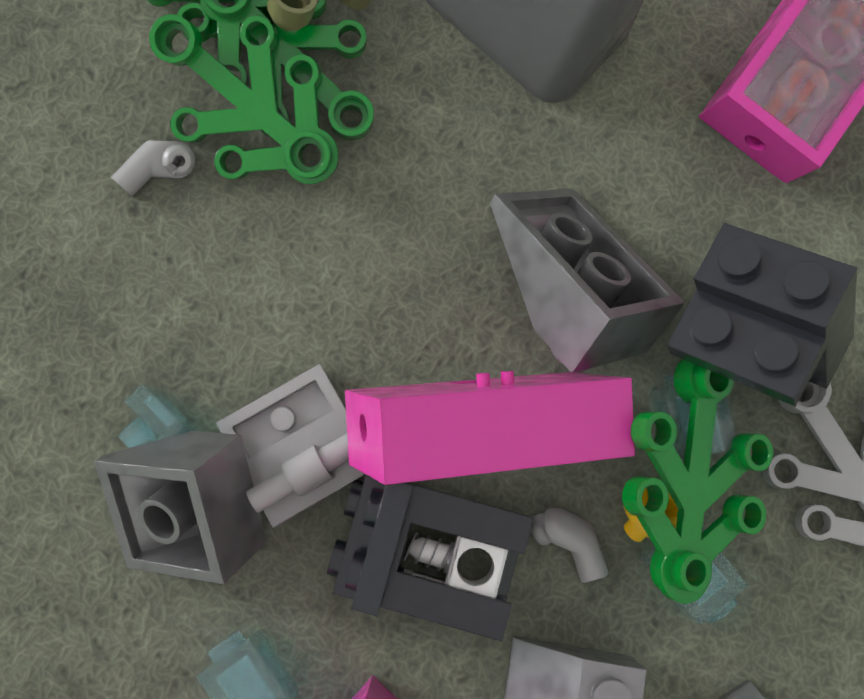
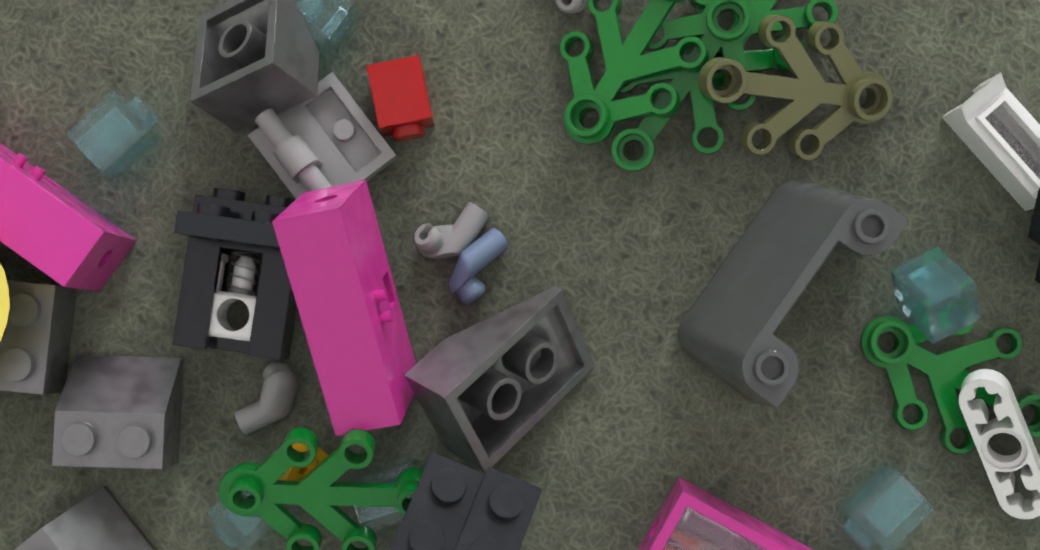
camera: 80 degrees right, 5 degrees up
(256, 350) = (401, 98): none -> red brick
(419, 317) = (451, 239): none -> light grey arm
(446, 297) = (471, 262): none -> sand blue arm

